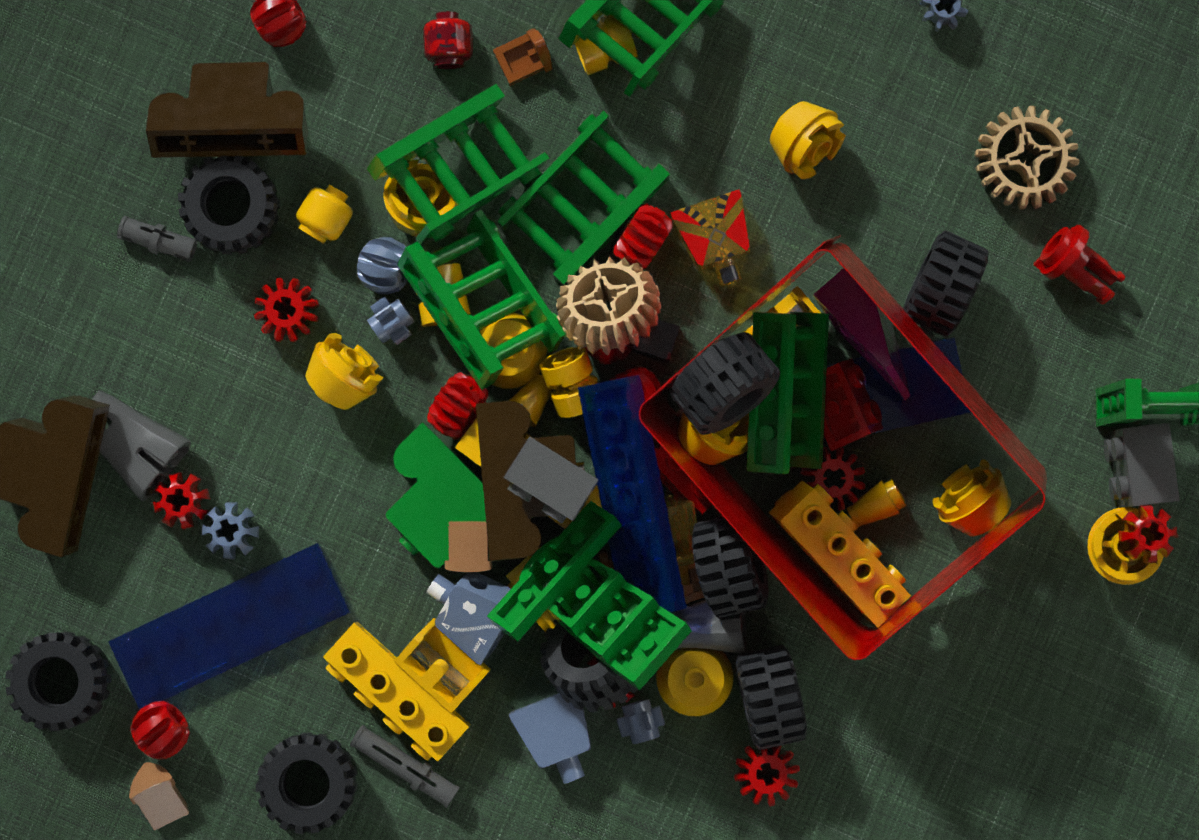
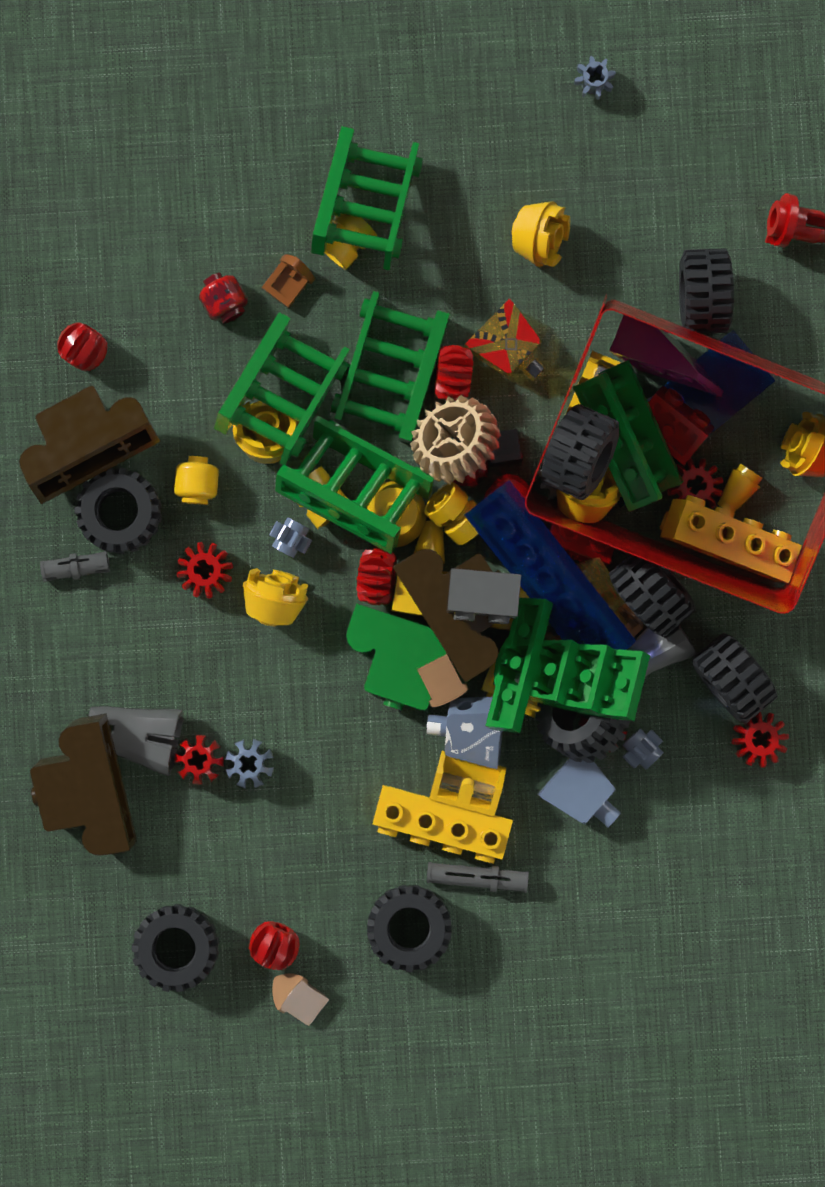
camera: 30 degrees left, 0 degrees up
(229, 626) = (286, 838): clear blue plate -> none
(378, 266) = (260, 498): sand blue piece -> none
(695, 681) = (669, 696): yellow cone -> none
(1025, 142) = (709, 150): tan gear -> none

